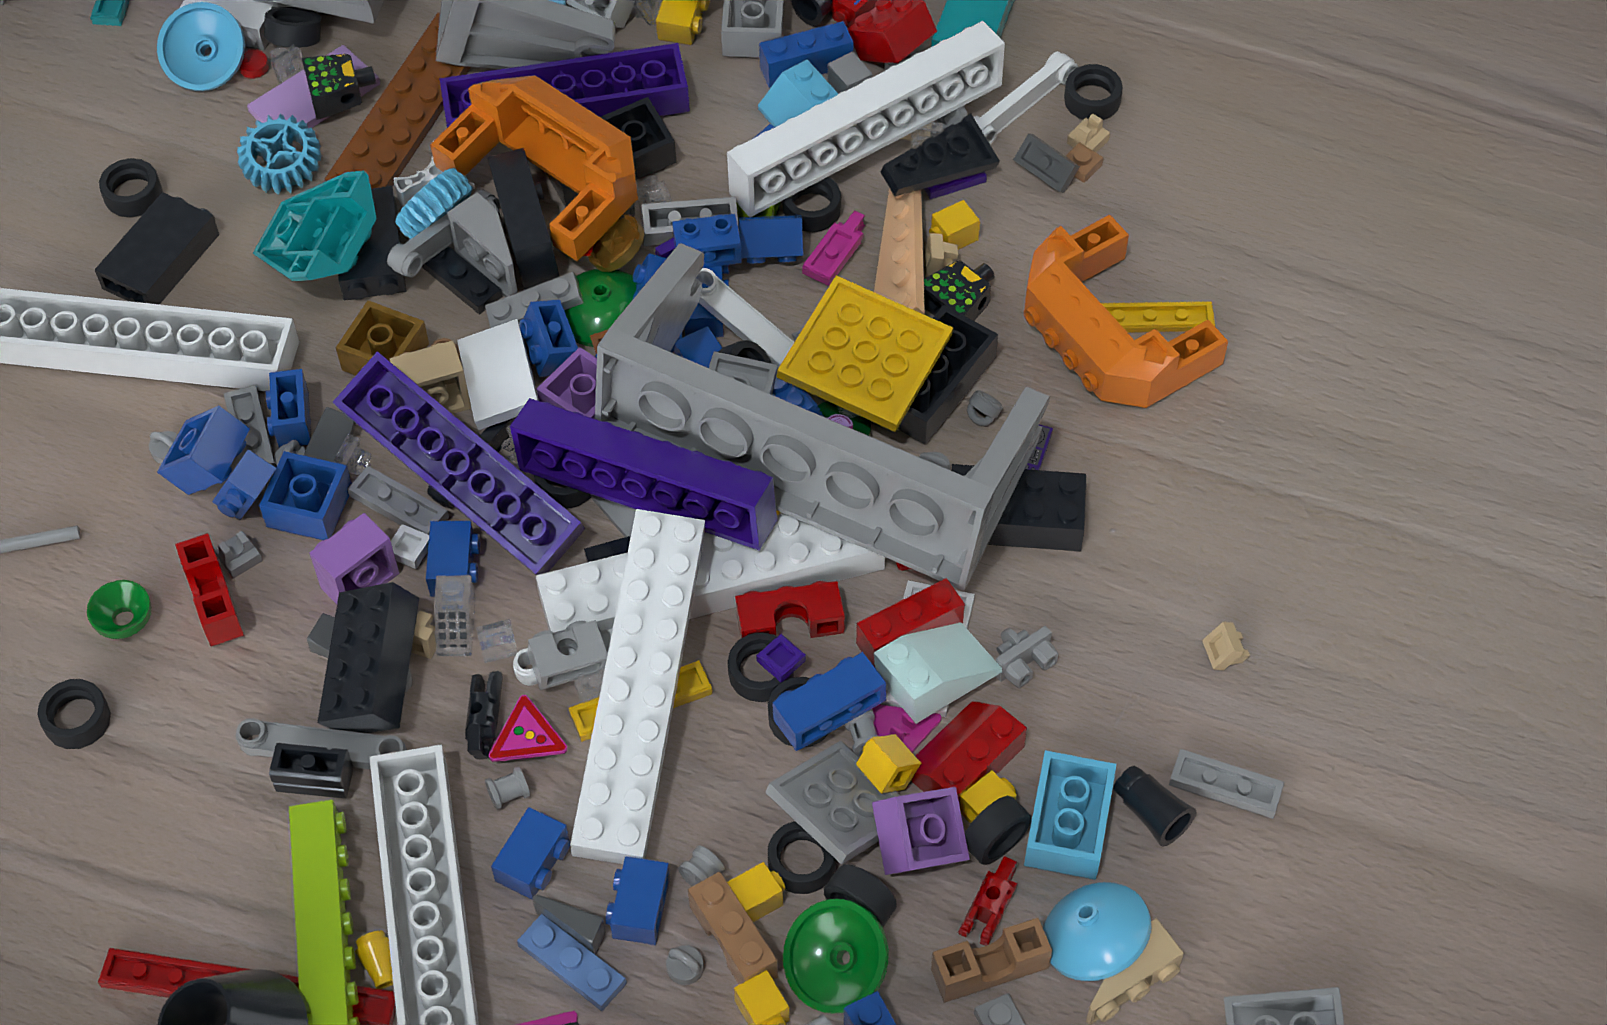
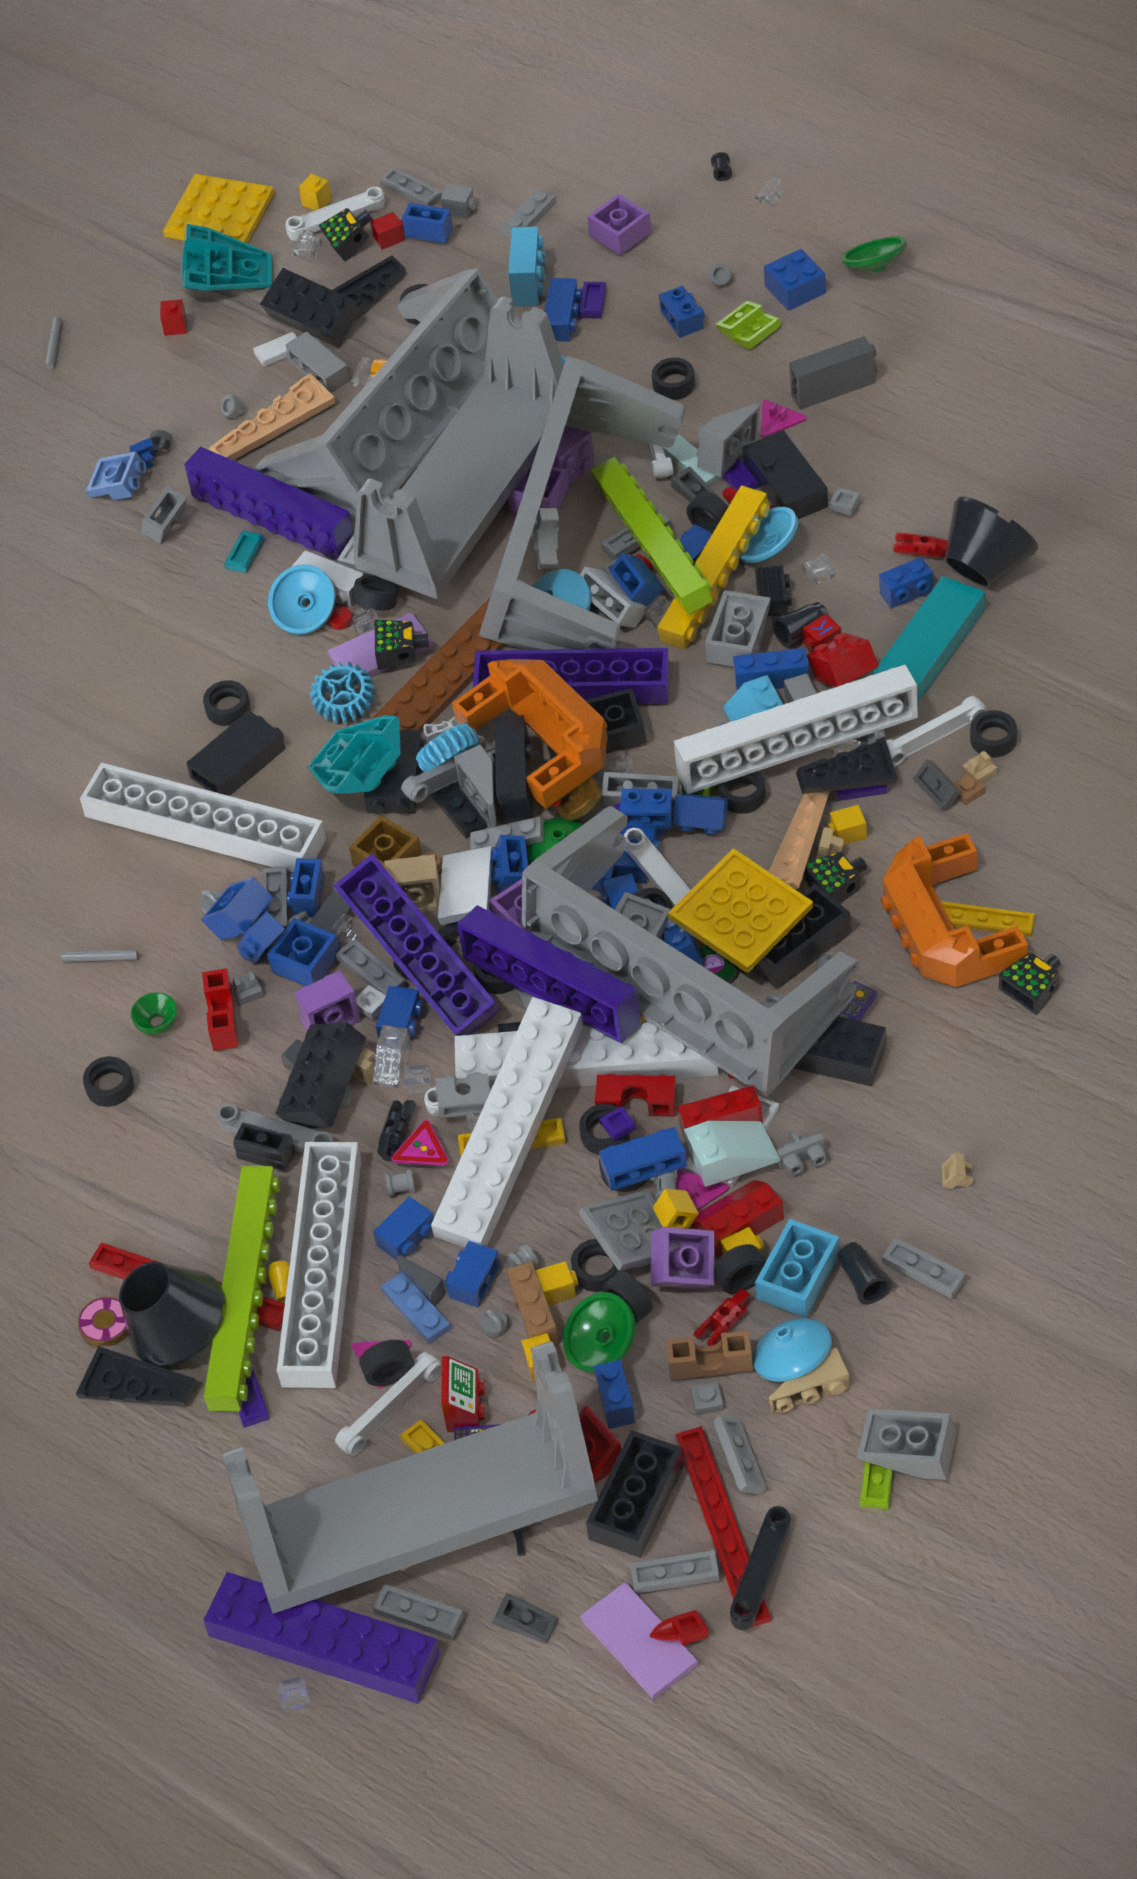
camera: 20 degrees right, 5 degrees down
(835, 249) = (750, 828): dark pink hinge -> none
(1237, 386) = (1031, 981): none -> black torso

